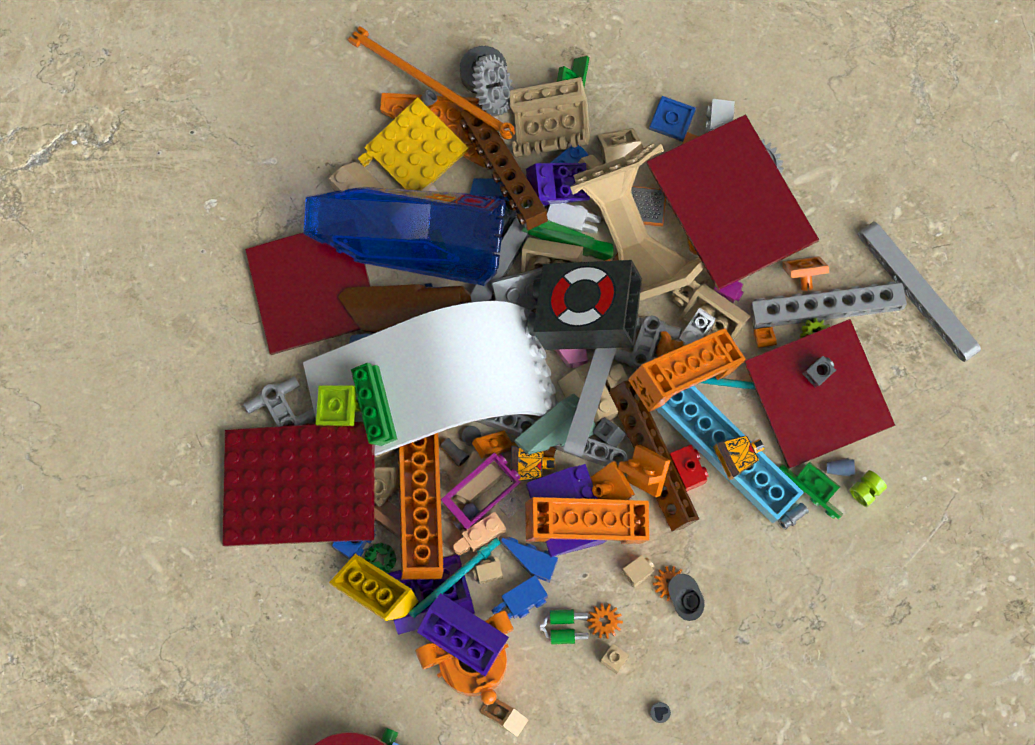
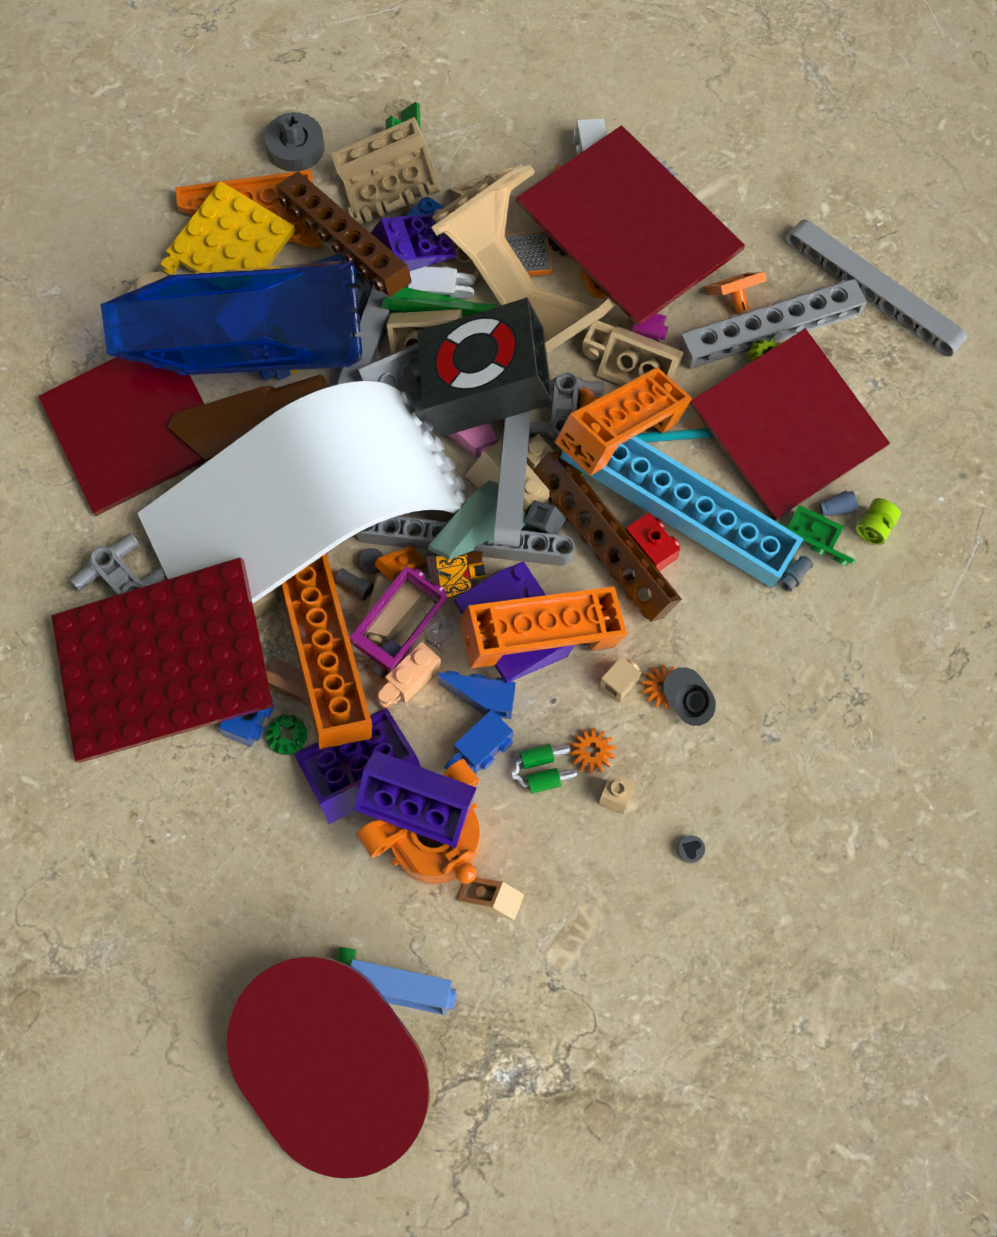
camera: 15 degrees left, 5 degrees down
(336, 405) = (191, 547): lime bracket -> none
(374, 404) = (238, 535): green brick -> none
(374, 589) = (287, 768): yellow slope -> none
(385, 483) = (274, 638): tan plate -> none
(428, 97) = (234, 180): dark grey hinge -> none
(430, 82) = (139, 133): orange hinge -> none
(483, 553) = (417, 700): teal bar -> none
(488, 571) = (429, 720): tan brick -> none
(491, 71) = (309, 146): light grey gear -> none
(611, 484) = (562, 576): orange tile -> none
(646, 470) = (602, 553): orange bracket -> none
(672, 118) = (535, 150): blue tile -> none
(698, 327) = (626, 369): white slope -> none
(737, 454) = (712, 506): torso -> none
(764, 337) = (706, 374): orange tile -> none
(811, 372) = (778, 400): dark grey brick -> none

